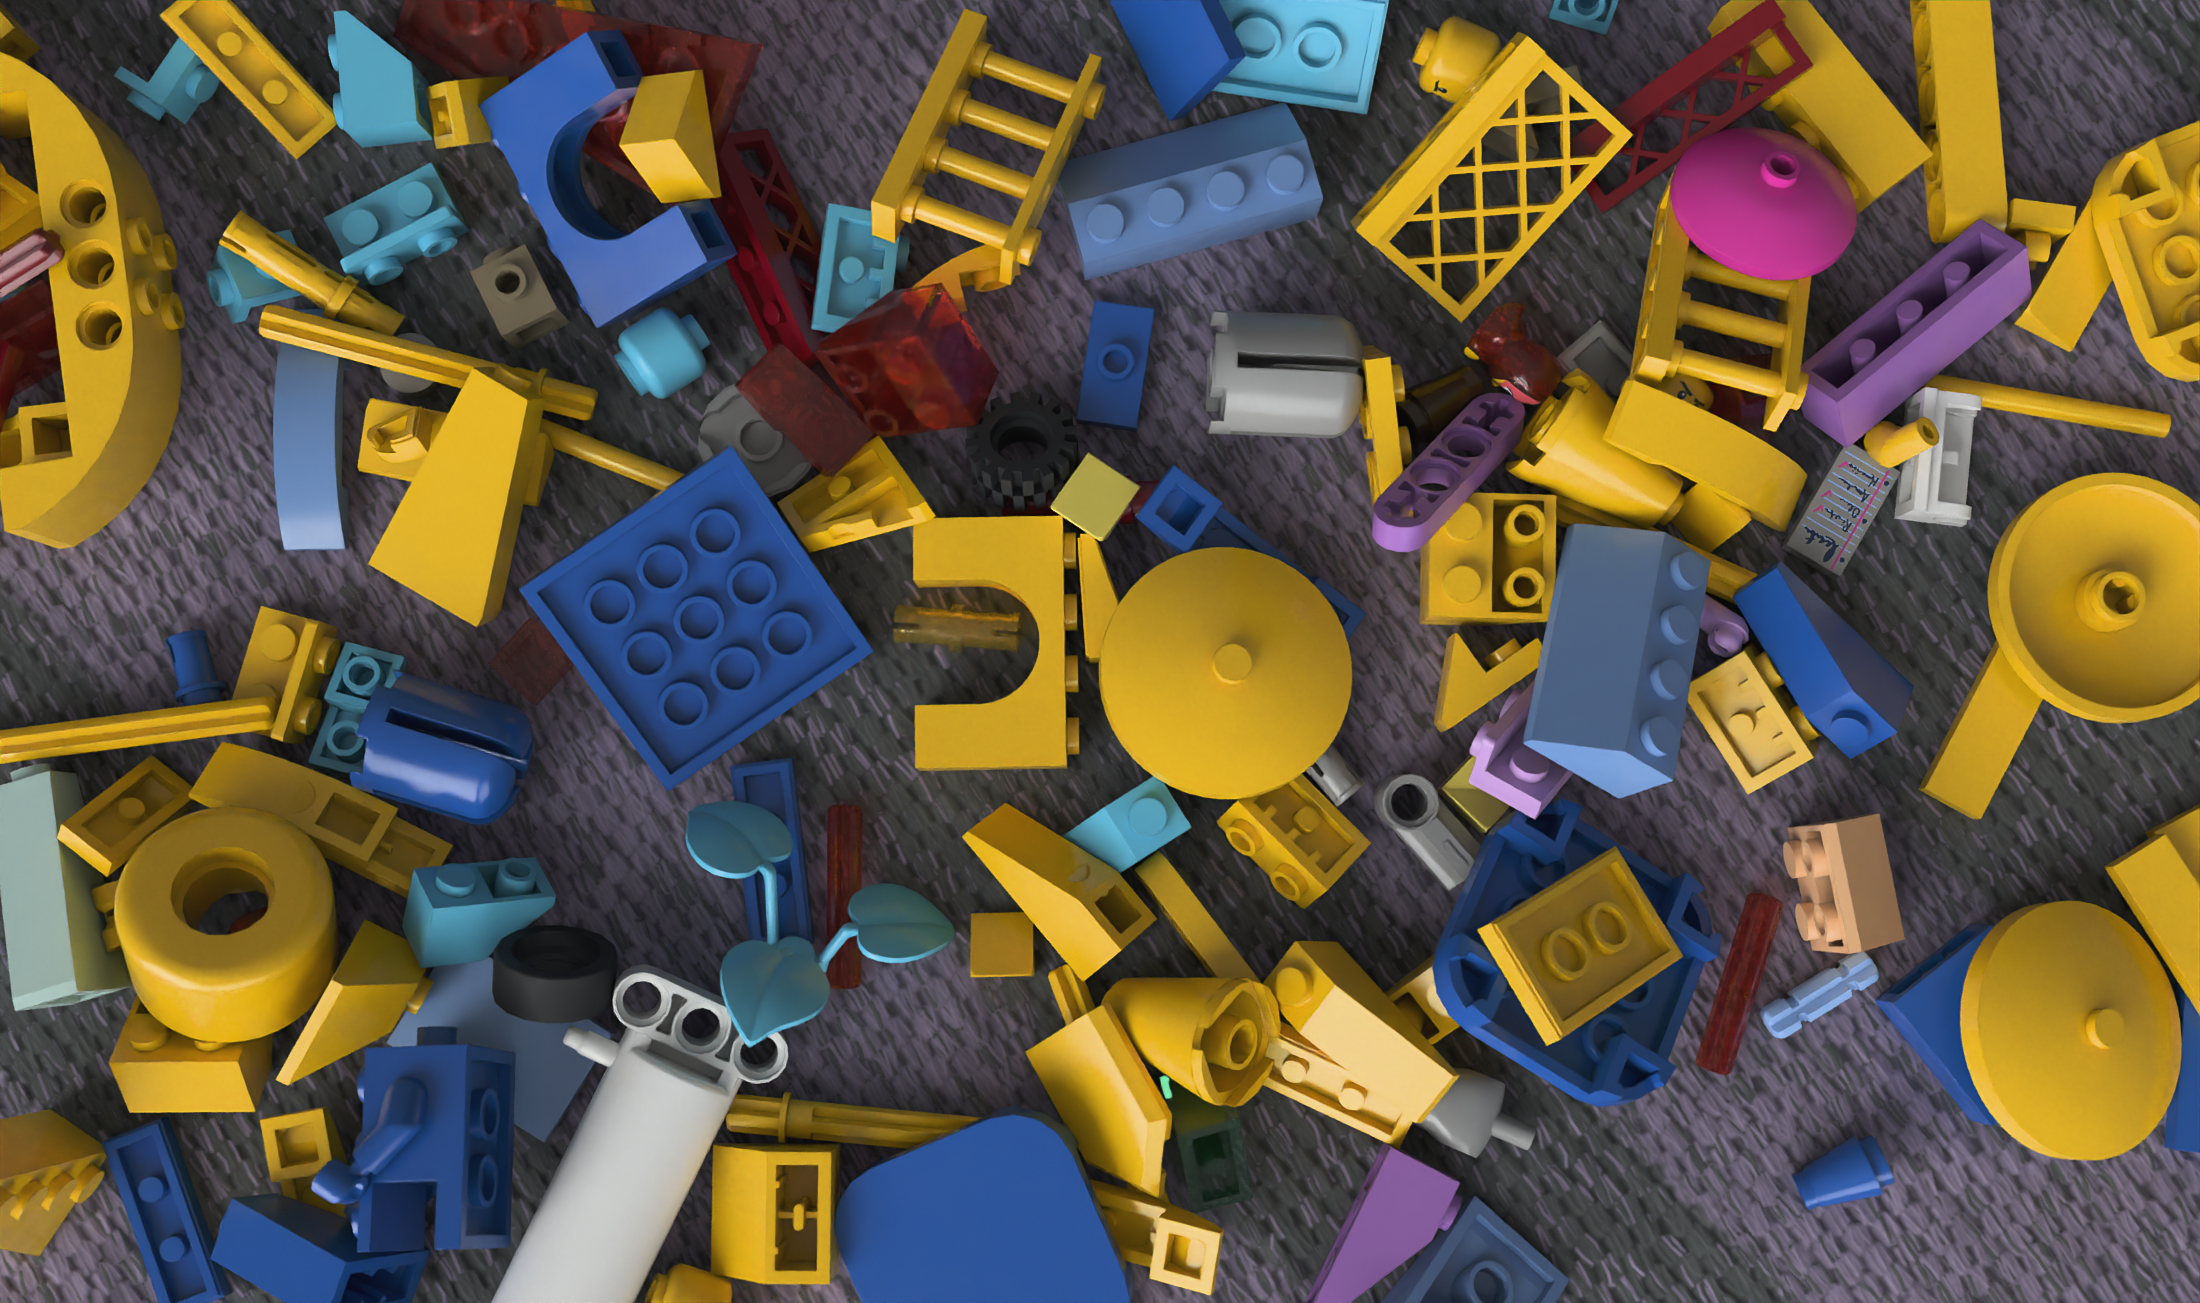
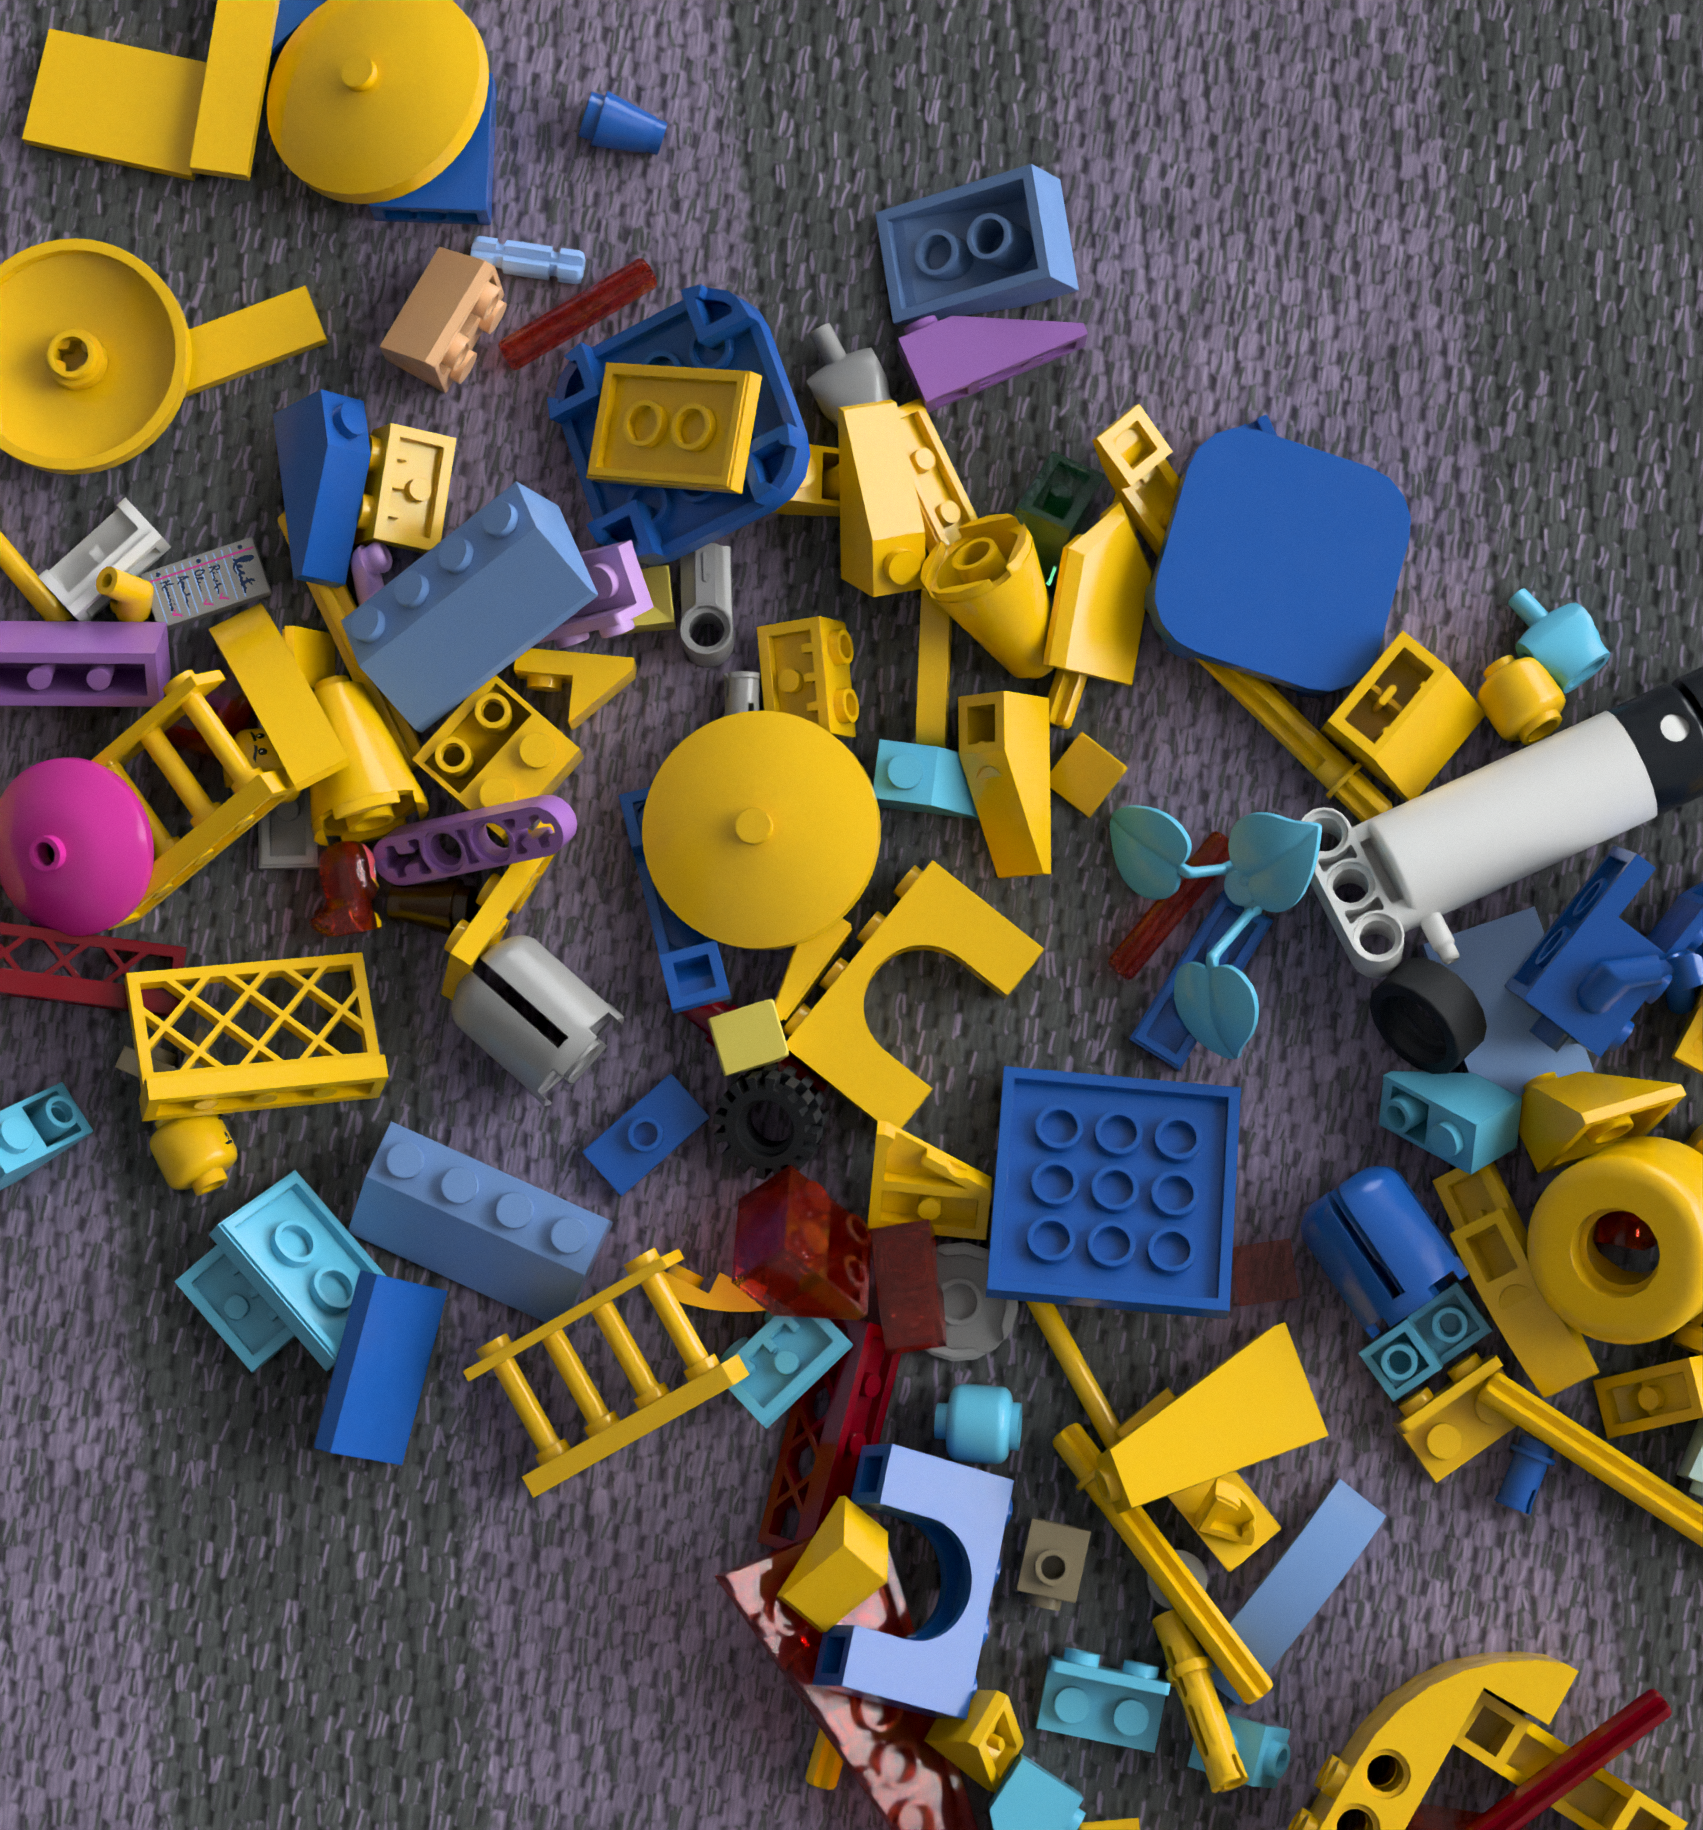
camera: 145 degrees left, 0 degrees up
(957, 628) = (927, 1032): clear yellow pin -> none

